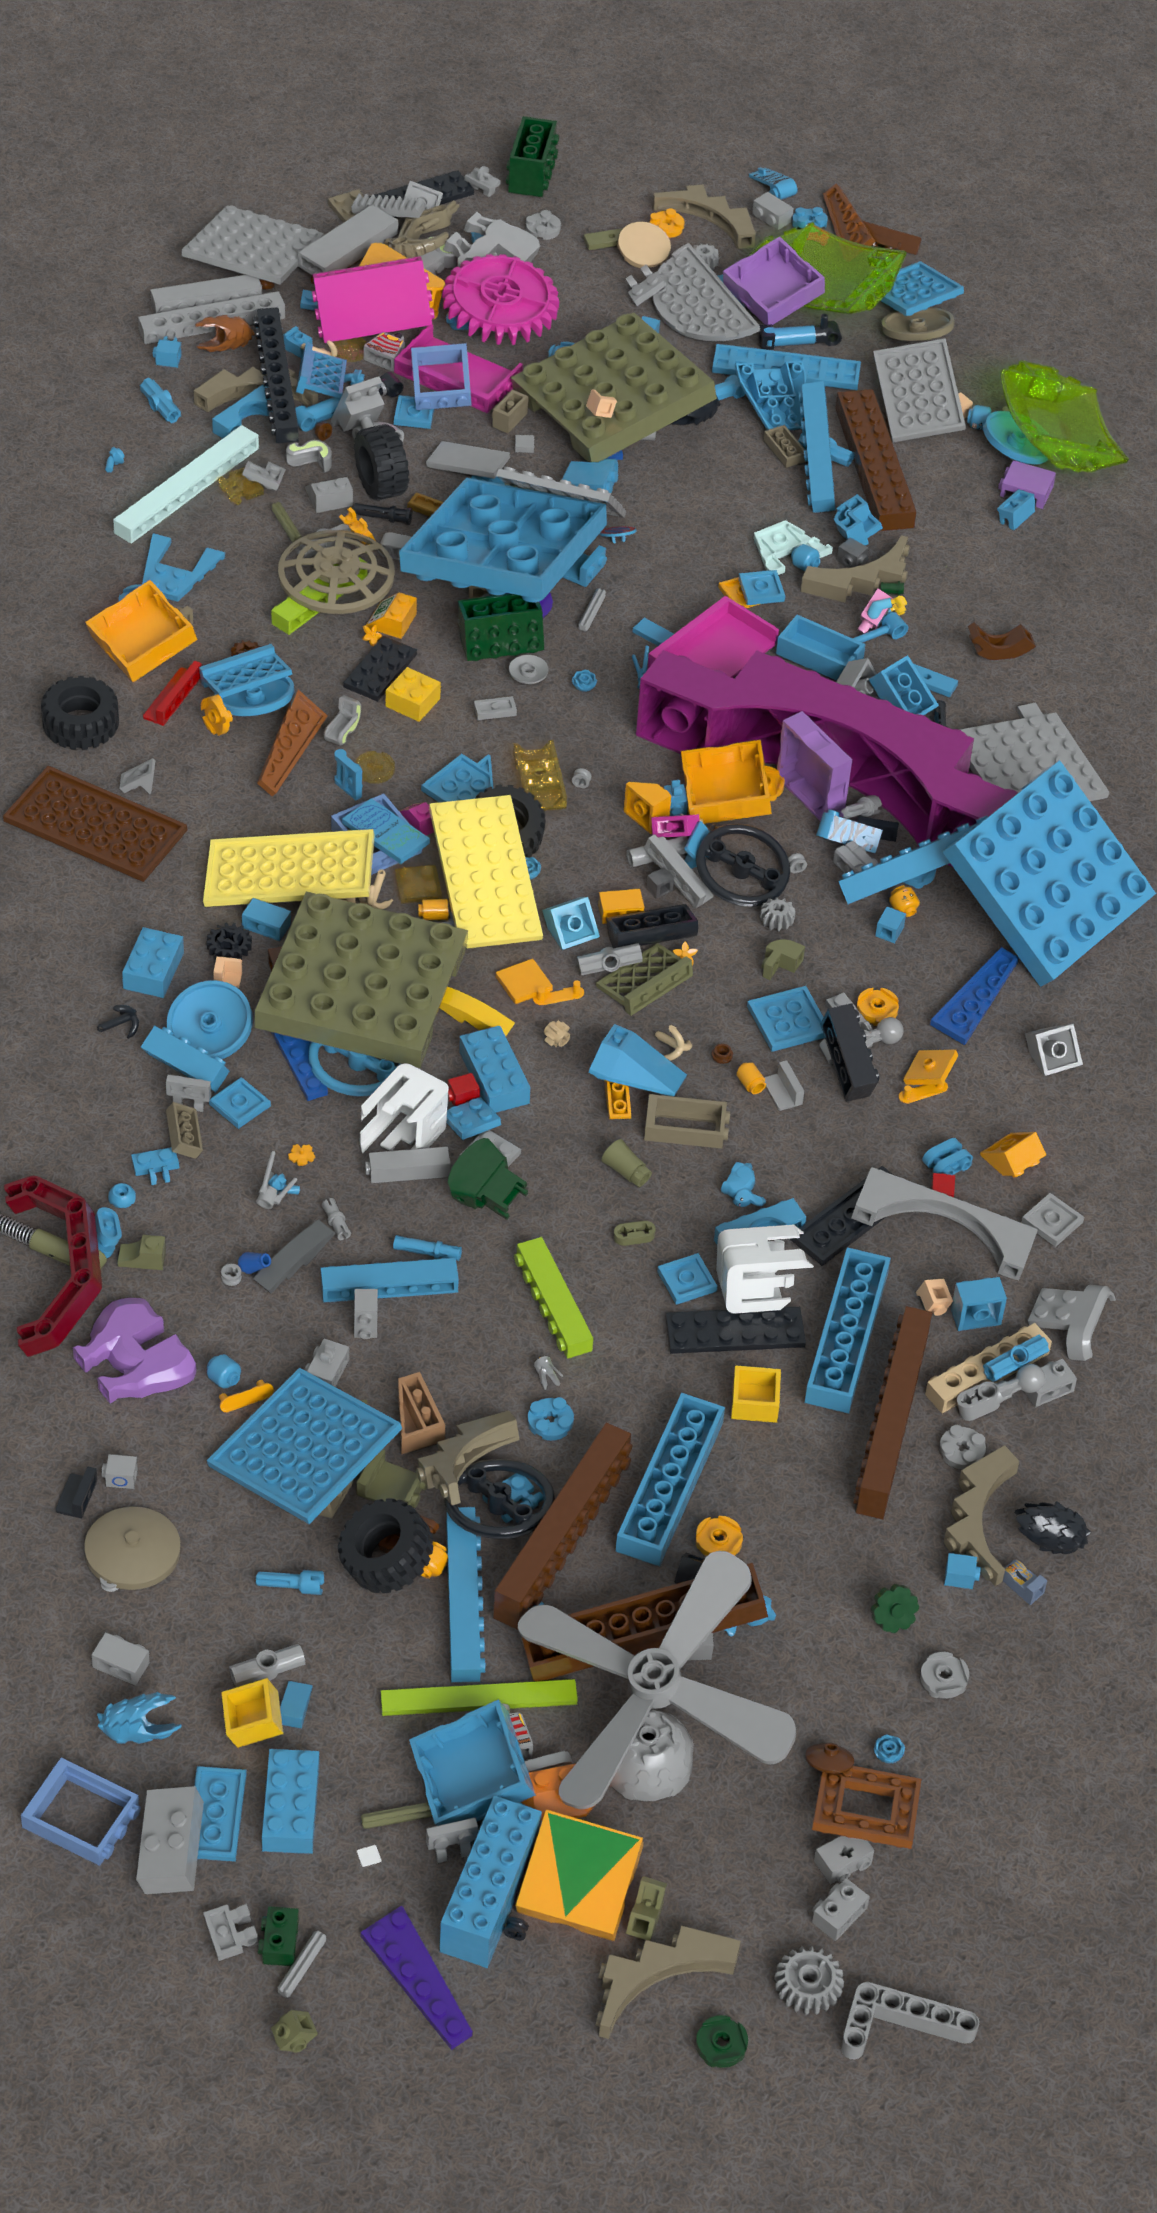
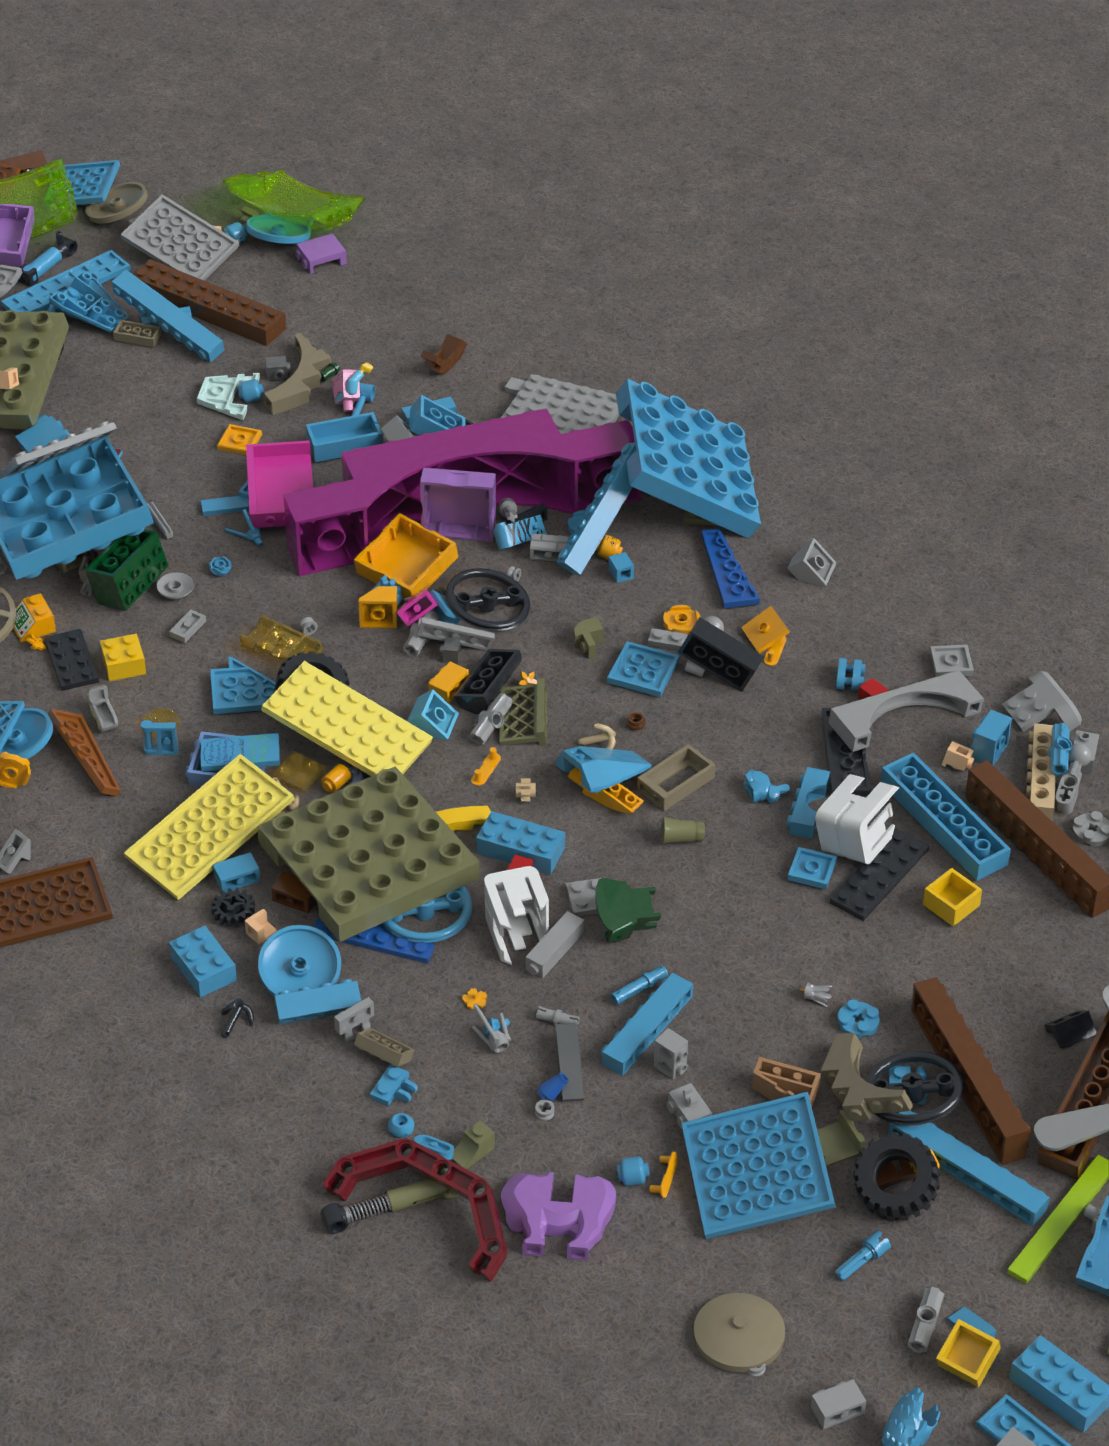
camera: 45 degrees left, 5 degrees down
(77, 1493) = (656, 1332): black panel -> none
(120, 1471) = (664, 1292): light grey brick -> none
(239, 1102) = (391, 1000): dark azure plate -> none
(419, 817) = (241, 726): dark pink slope -> none
(472, 1118) = (556, 882): dark azure plate -> none
(523, 981) = (454, 777): light orange tile -> none
(554, 1298) = (757, 946): lime brick -> none
(634, 1233) = (739, 867): olive beam -> none
(670, 1479) = (981, 989): dark azure brick -> none
(719, 1526) = (1044, 1007): light orange plate -> none
(751, 1078) = (674, 720): light orange brick -> none
(761, 587) = (252, 426): dark azure plate -> none
(777, 914) = (547, 613): light grey gear -> none
(785, 1087) = (700, 710): light grey panel -> none
(856, 521) = (251, 346): dark azure brick -> none
(1014, 1153) = (878, 640): light orange slope -> none
(1017, 508) = (336, 271): dark azure hinge -> none

